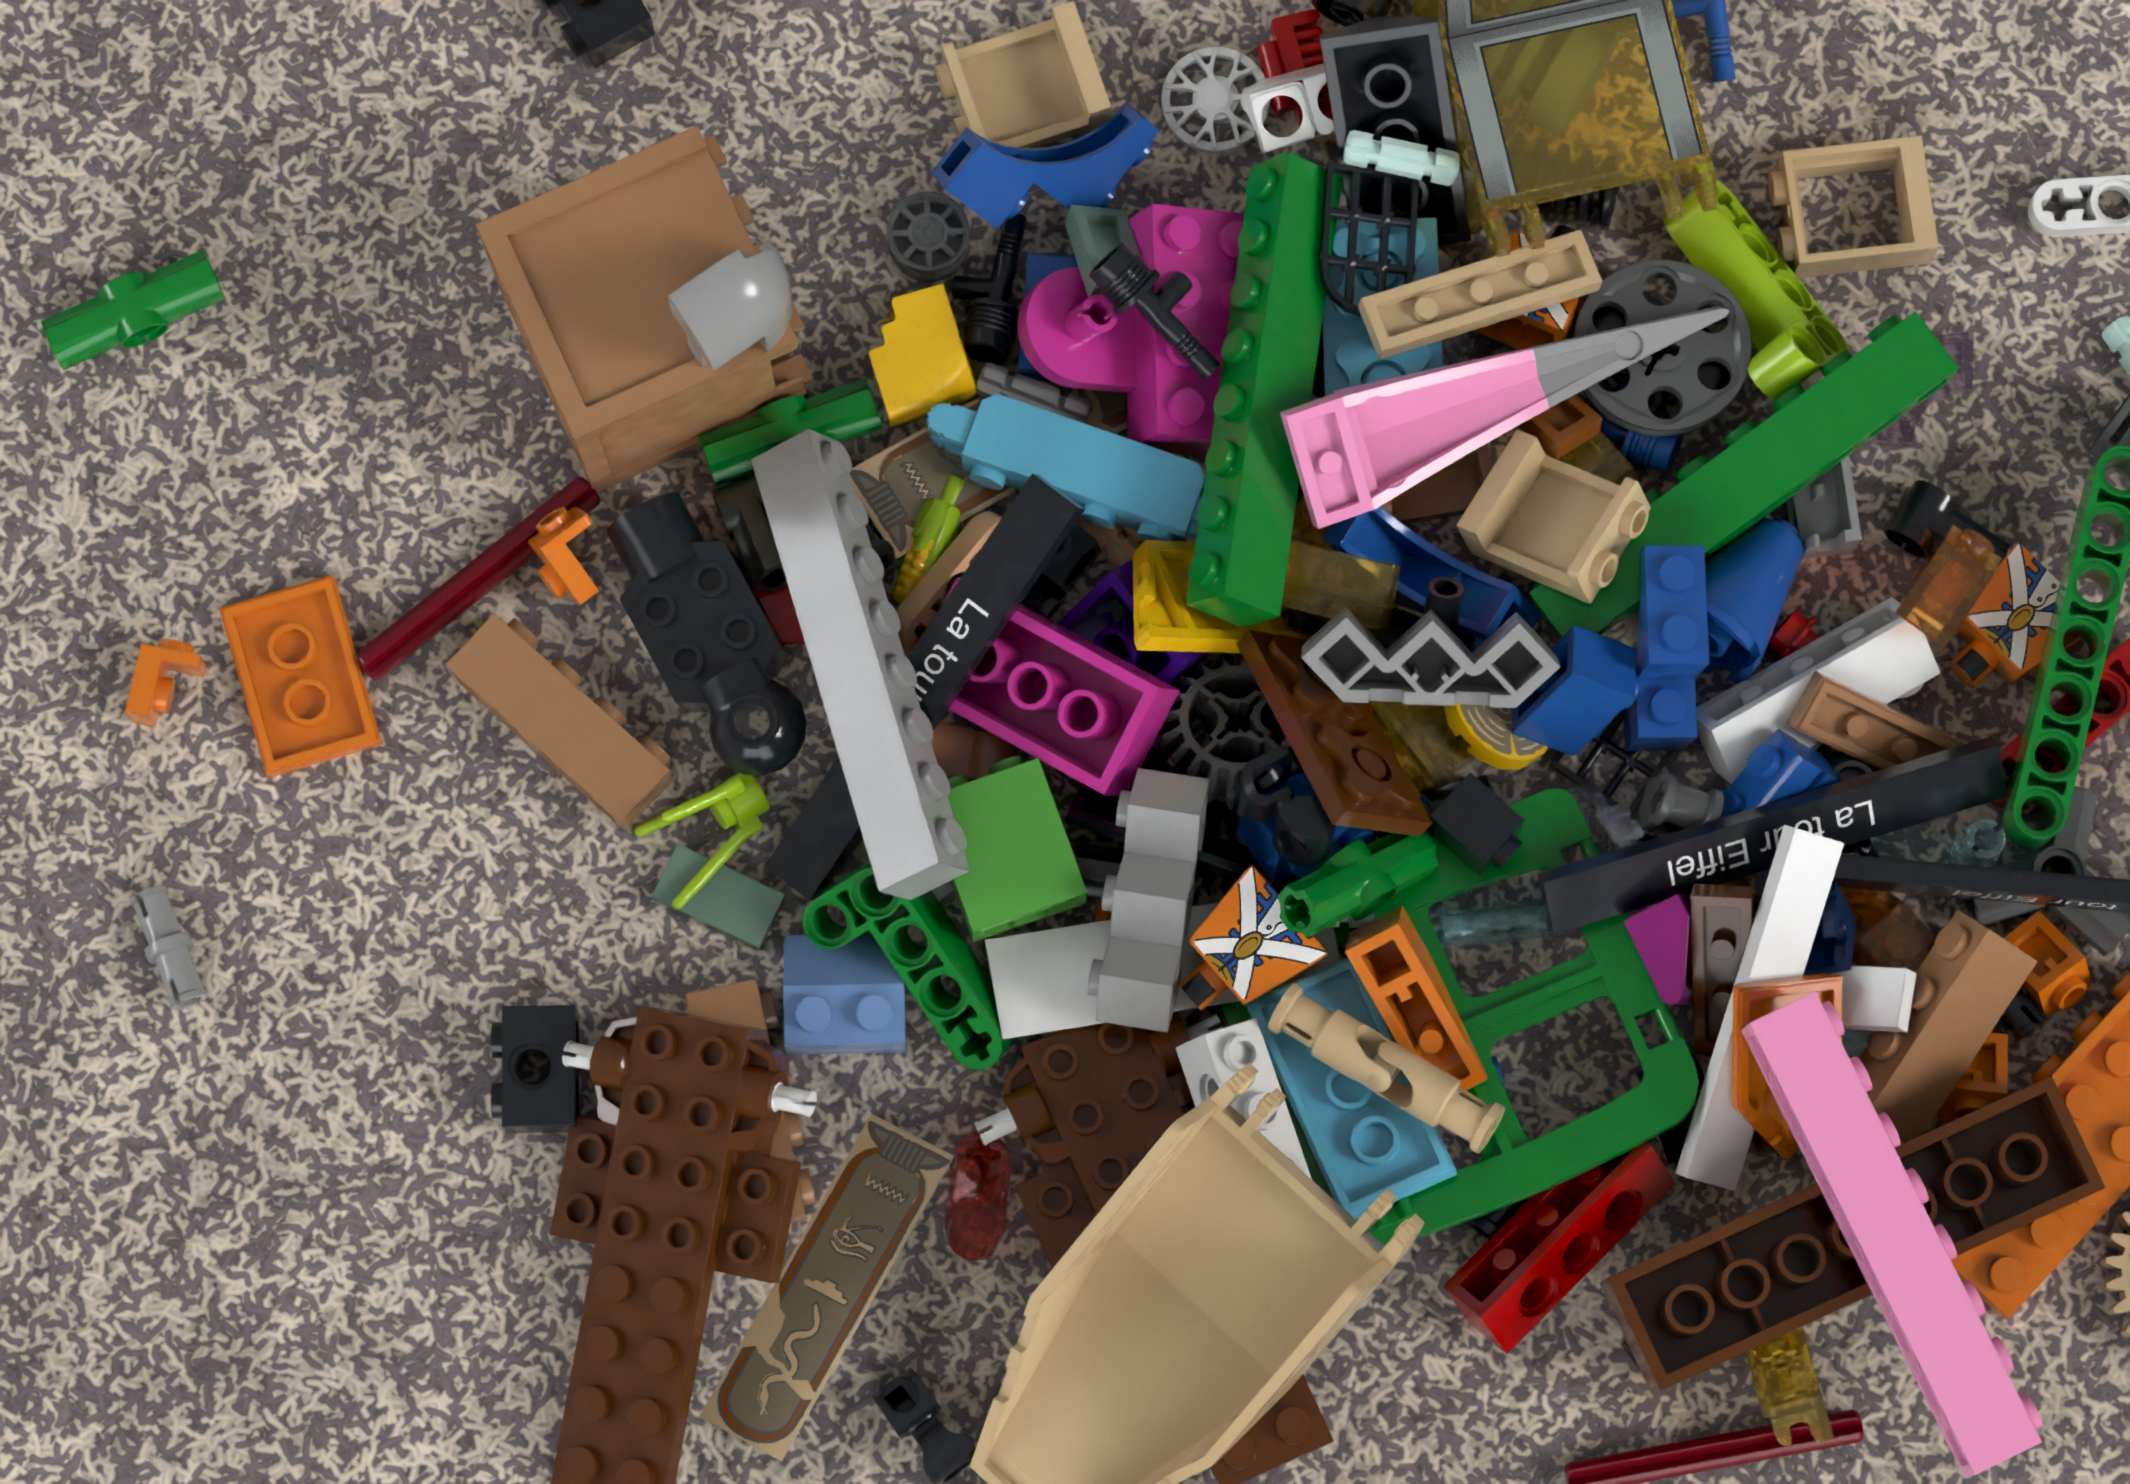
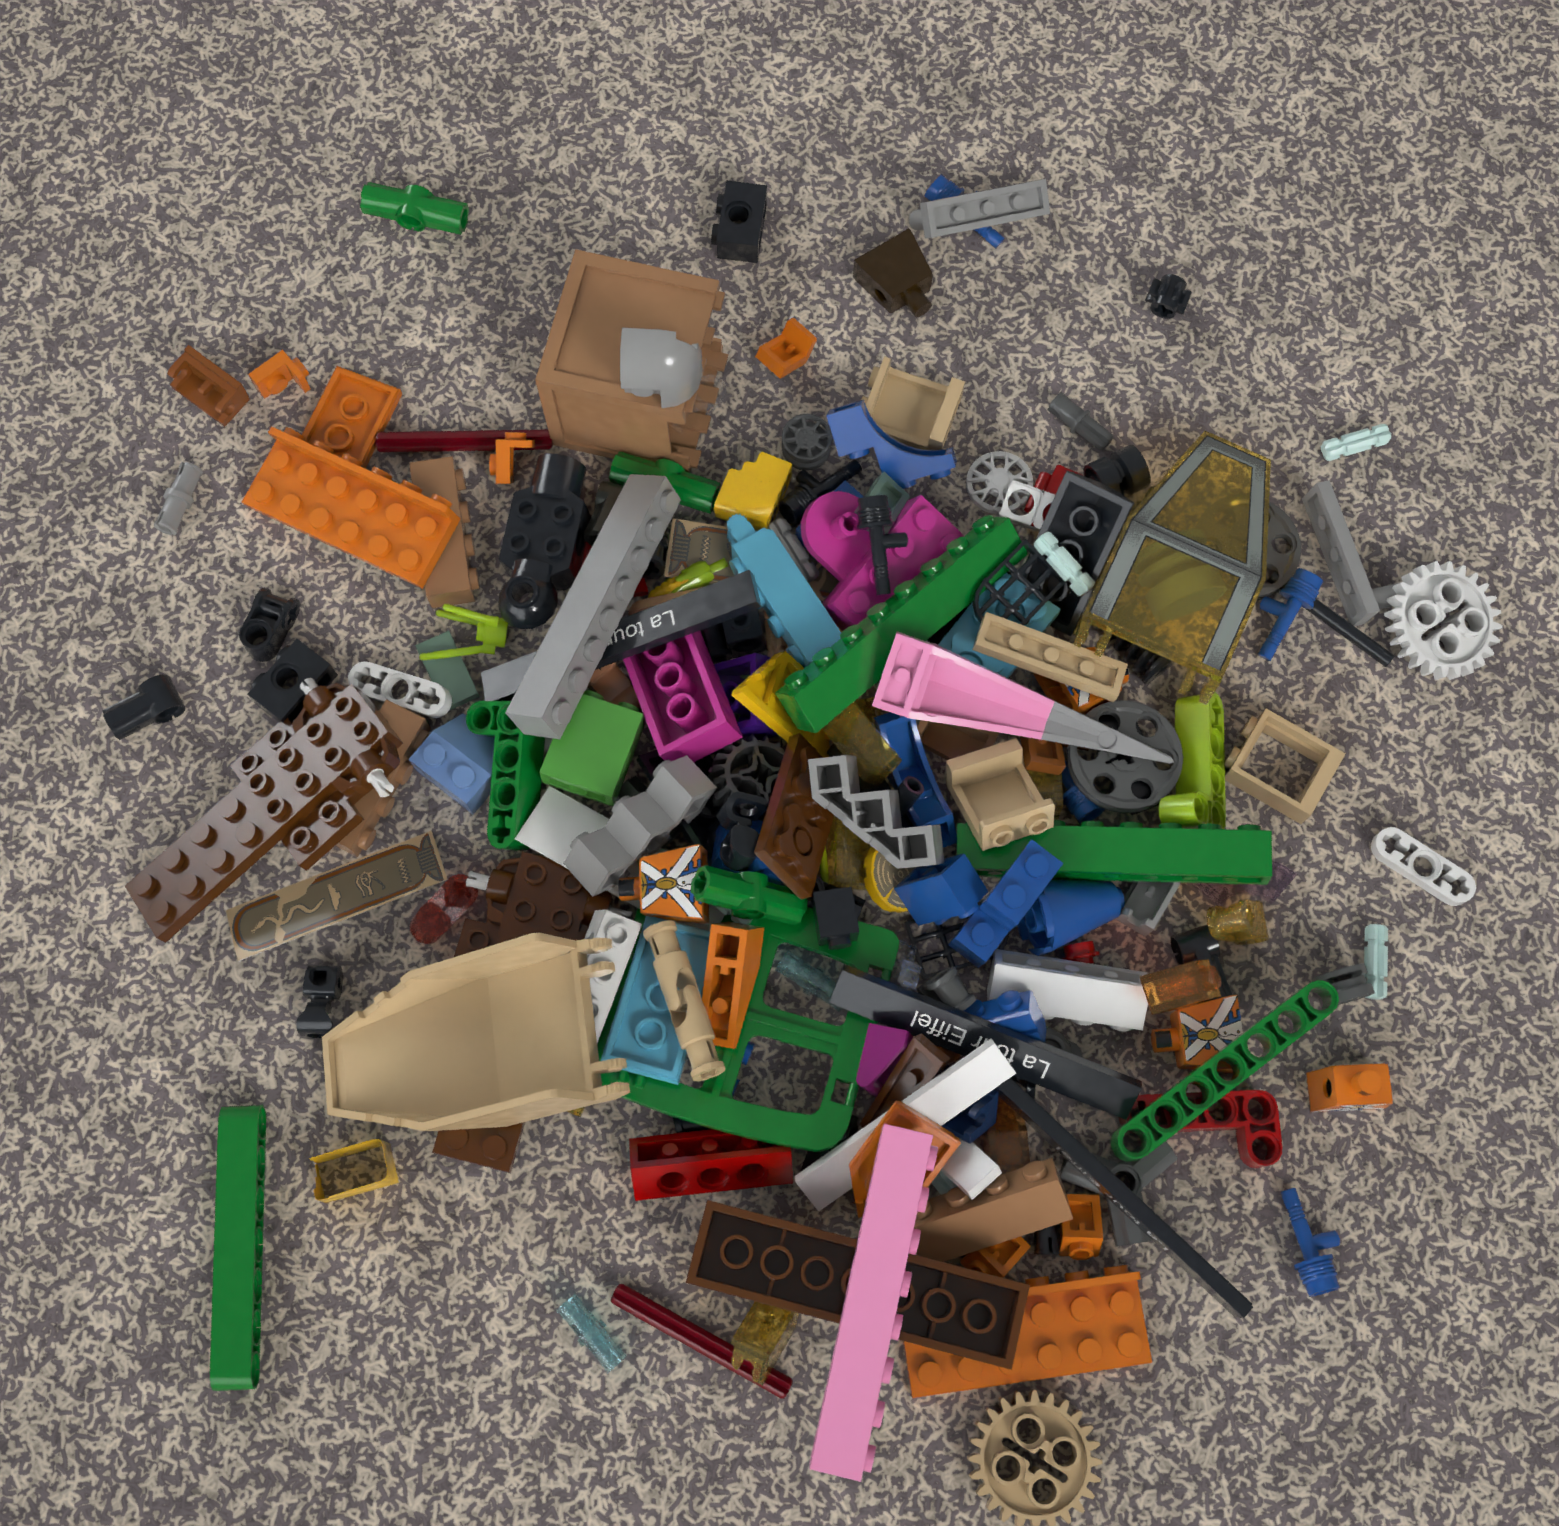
camera: 40 degrees right, 5 degrees down
(73, 769) = (207, 386): none -> dark orange hinge
(377, 1240) = (153, 703): none -> black piece
(418, 782) = (352, 507): none -> orange bracket
(434, 1008) = (268, 617): none -> black piece
(636, 968) = (415, 685): none -> white beam
(801, 129) = (787, 350): none -> orange bracket
(1864, 725) = (1079, 1024): medium nougat tile -> none
(1951, 449) = (1238, 922): none -> clear yellow piece
(1979, 834) = (1094, 1127): clear light blue pin -> none

